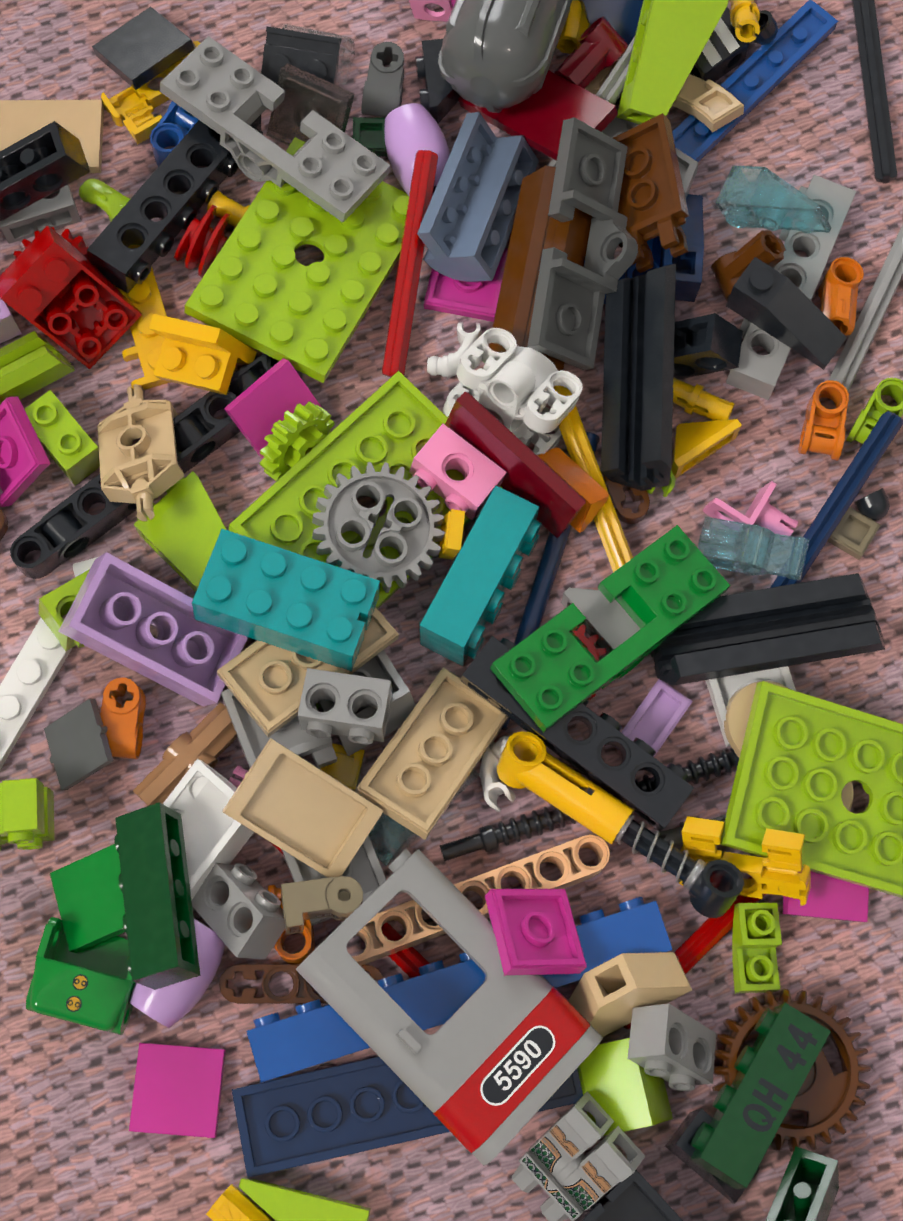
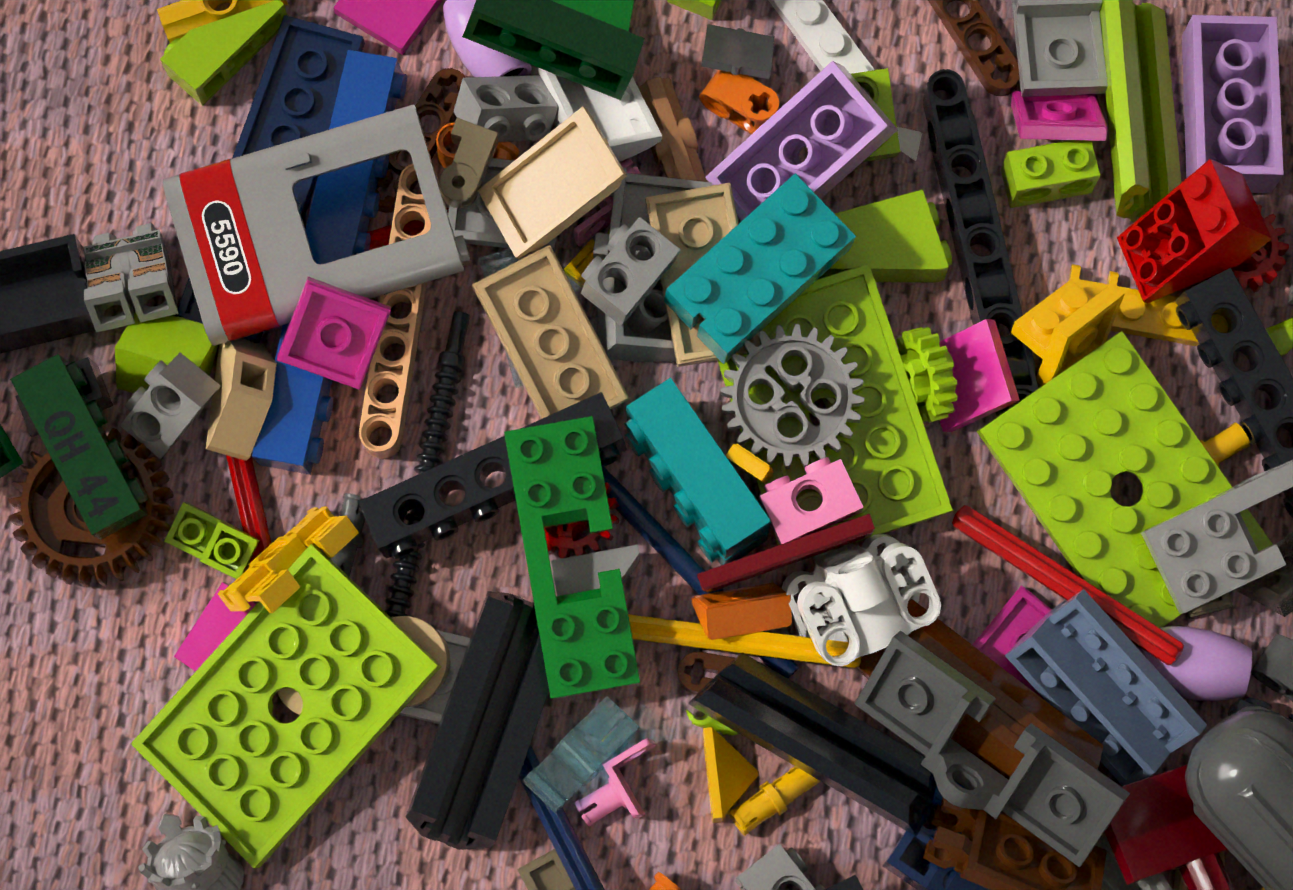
camera: 120 degrees right, 0 degrees up
(146, 468) = (967, 217): tan plate -> none
(202, 242) = (1195, 395): red piece -> none
(371, 134) = (1247, 629): dark green tile -> none
(449, 363) = (941, 574): white piece -> none
(489, 778) = (495, 389): white piece -> none
(528, 765) = (391, 465): piece -> none
(657, 715) = (469, 567): lavender tile -> none
(705, 346) = (815, 825): black brick -> none

